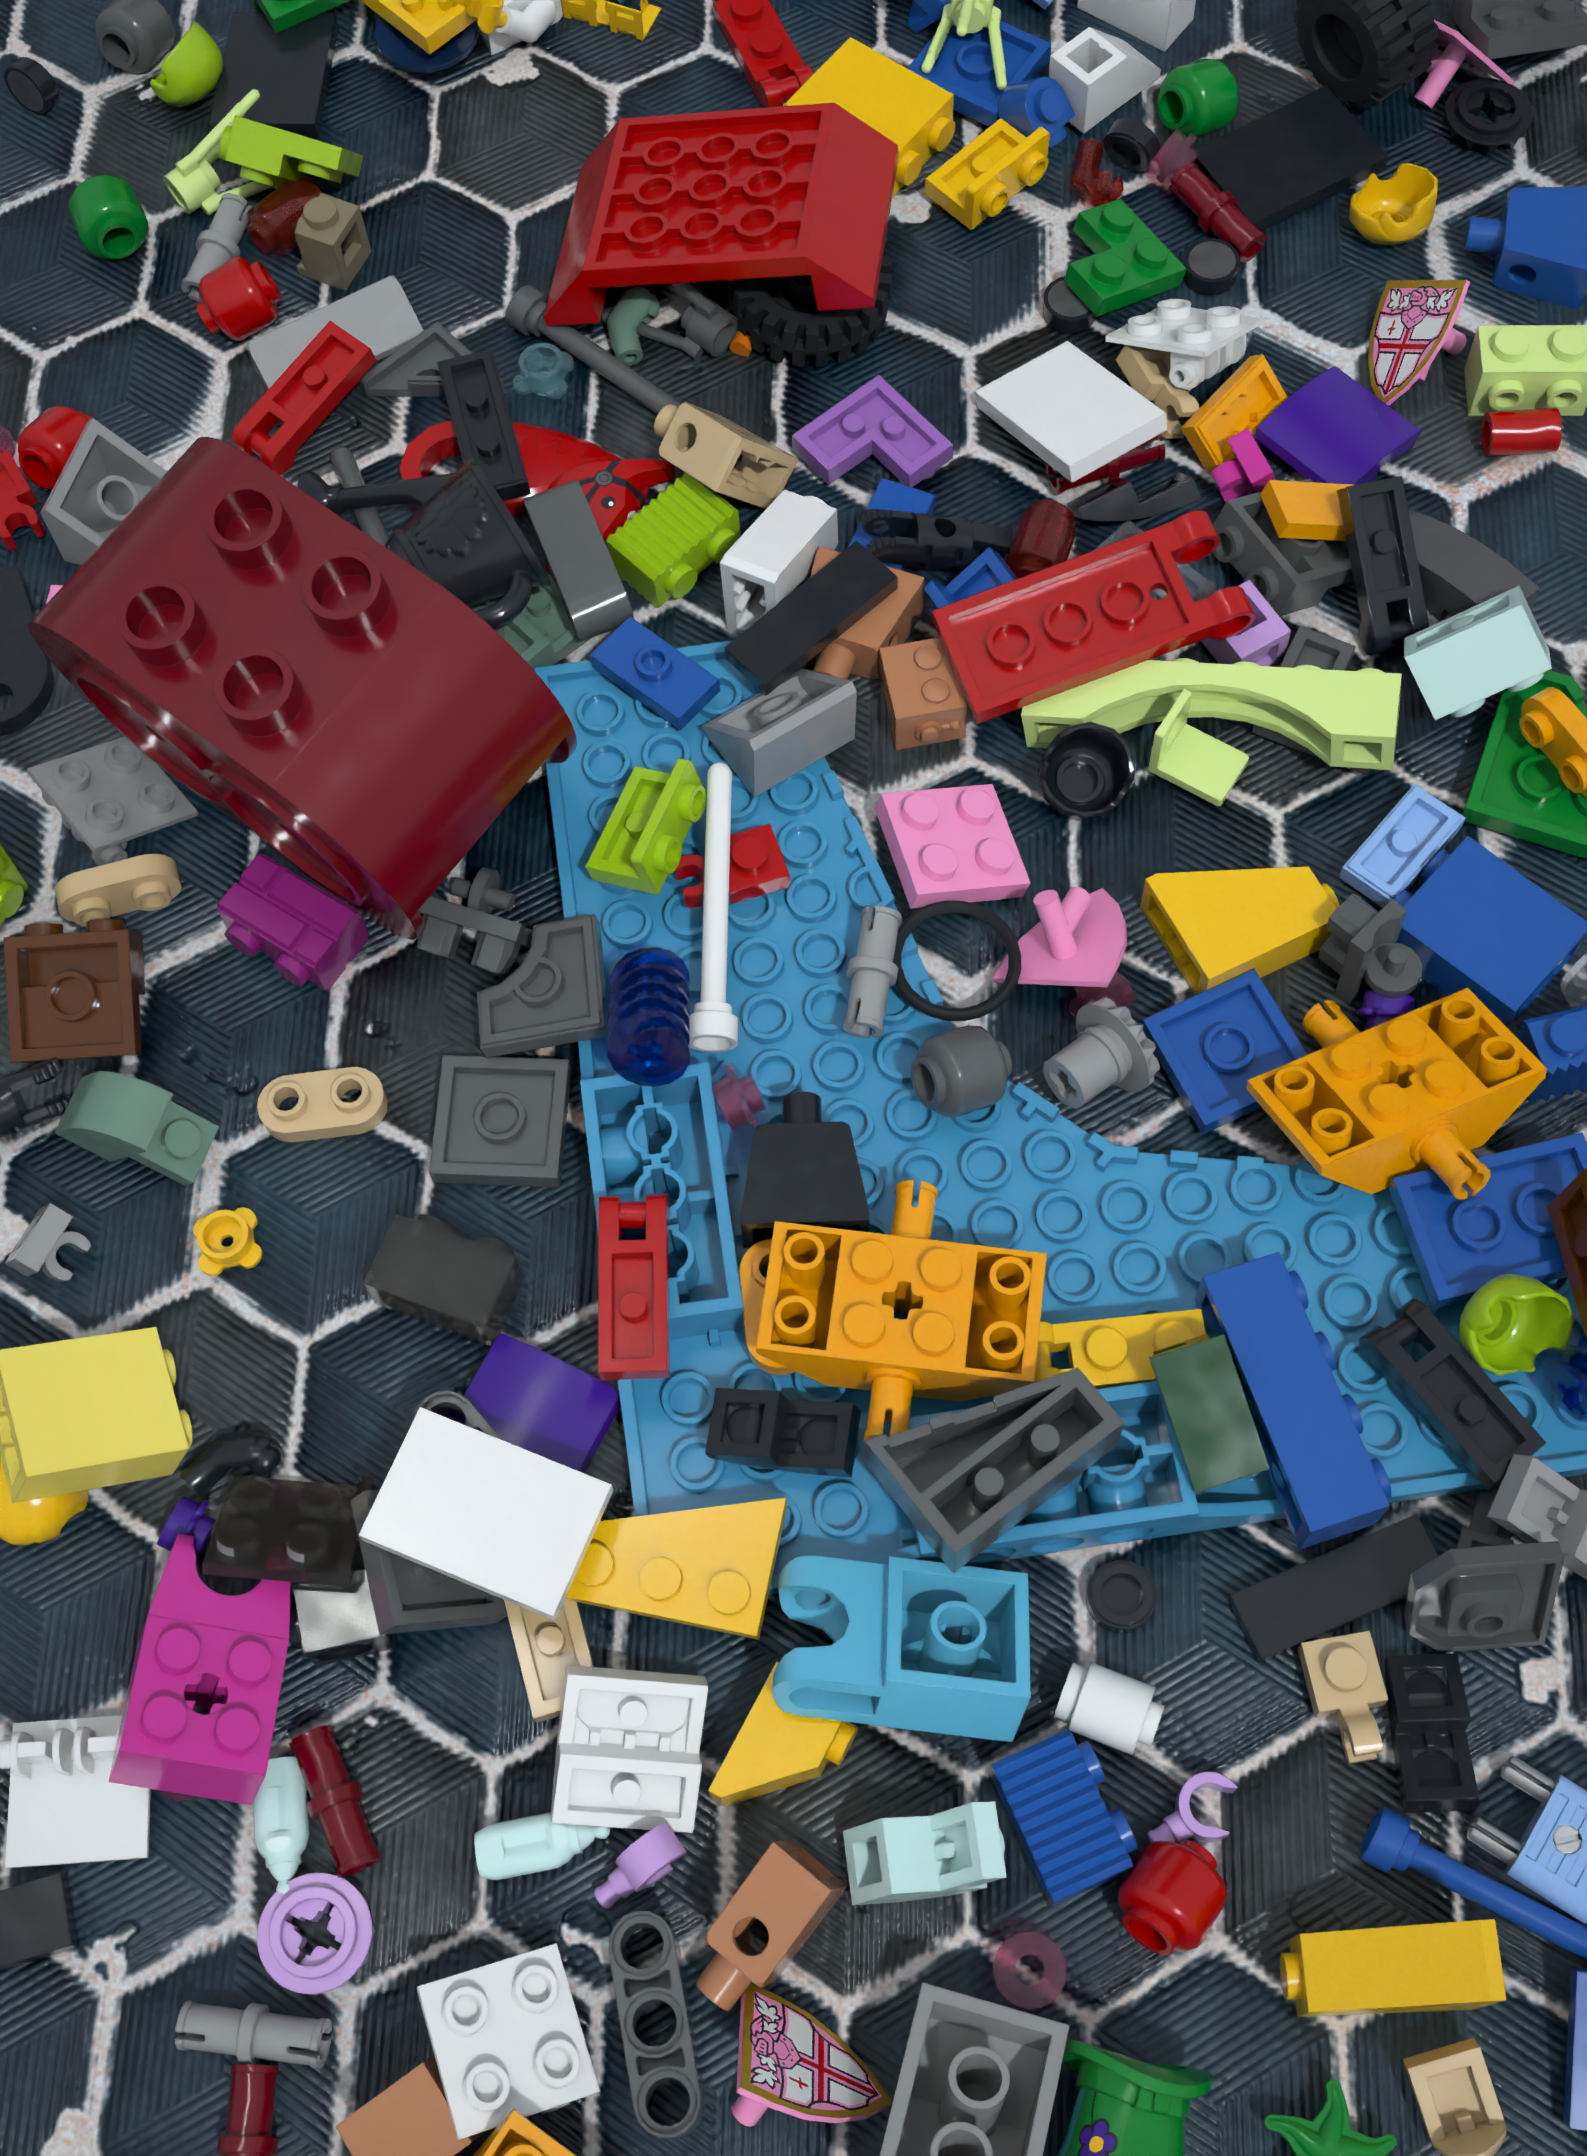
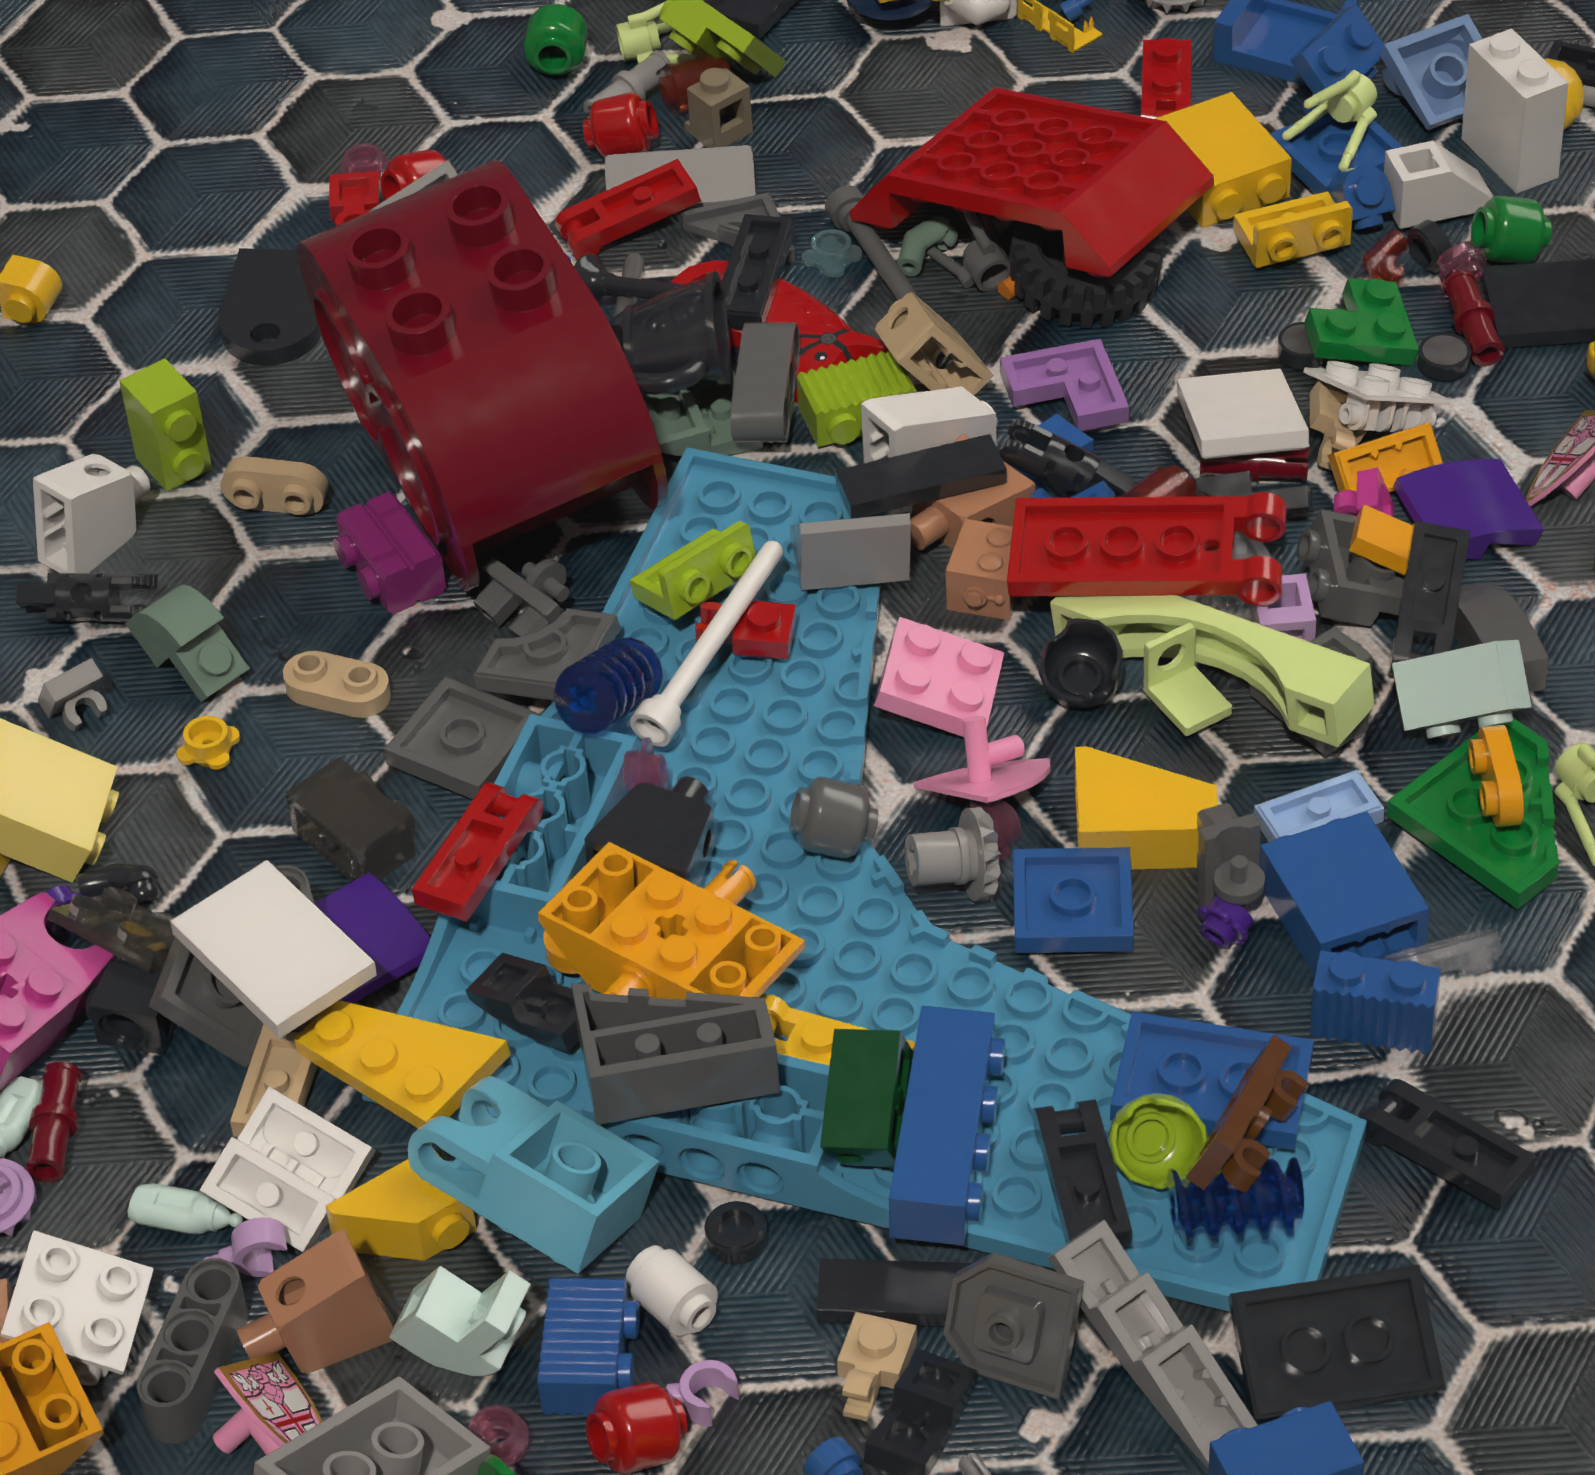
camera: 25 degrees right, 20 degrees down
(74, 992) = (199, 537): reddish brown plate -> none
(111, 796) = (309, 423): light grey hinge -> none
(655, 673) = (776, 478): blue plate -> none
(872, 972) = (809, 730): light grey pin -> none
(984, 915) = (894, 713): black tyre -> none
(1401, 1093) = (1177, 959): light orange slope -> none

